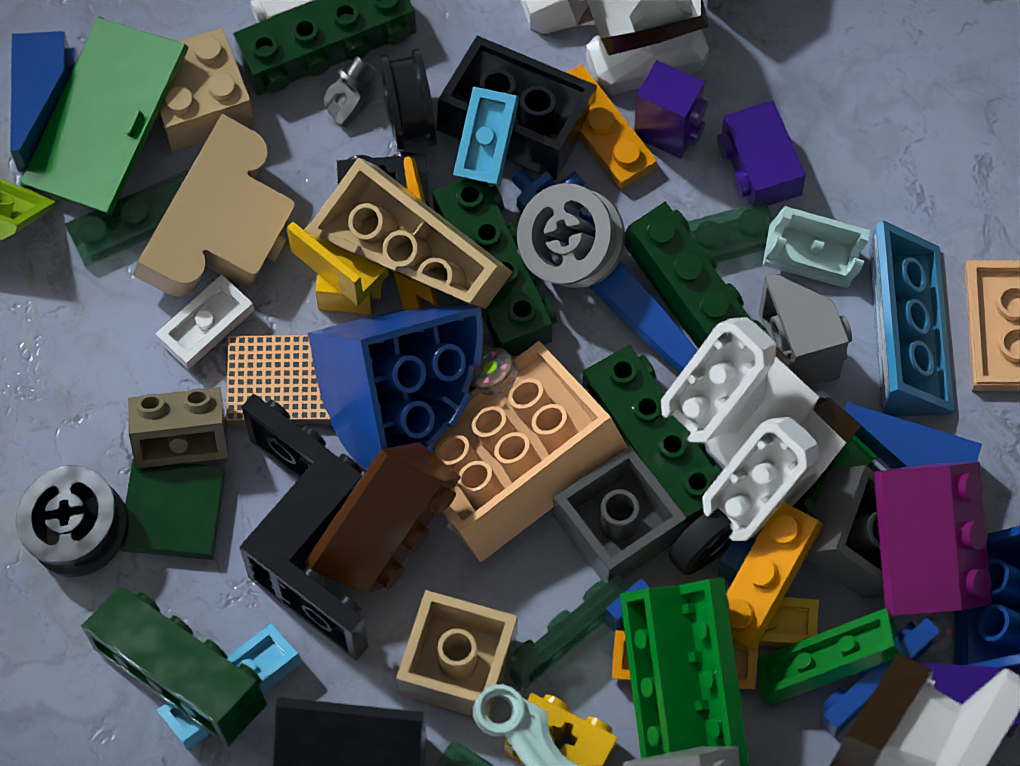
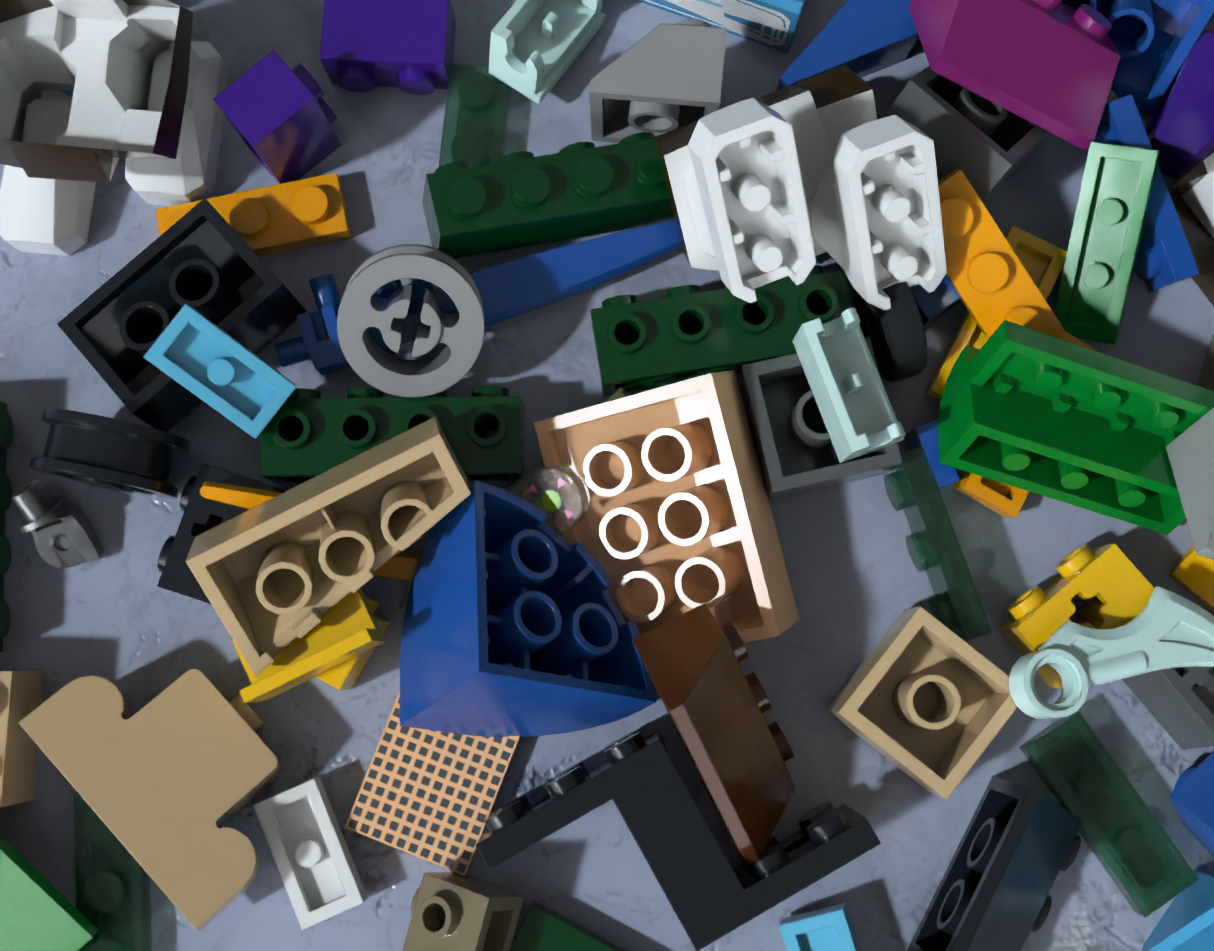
camera: 65 degrees left, 15 degrees up
(642, 508) = (847, 386): none -> light aqua hinge

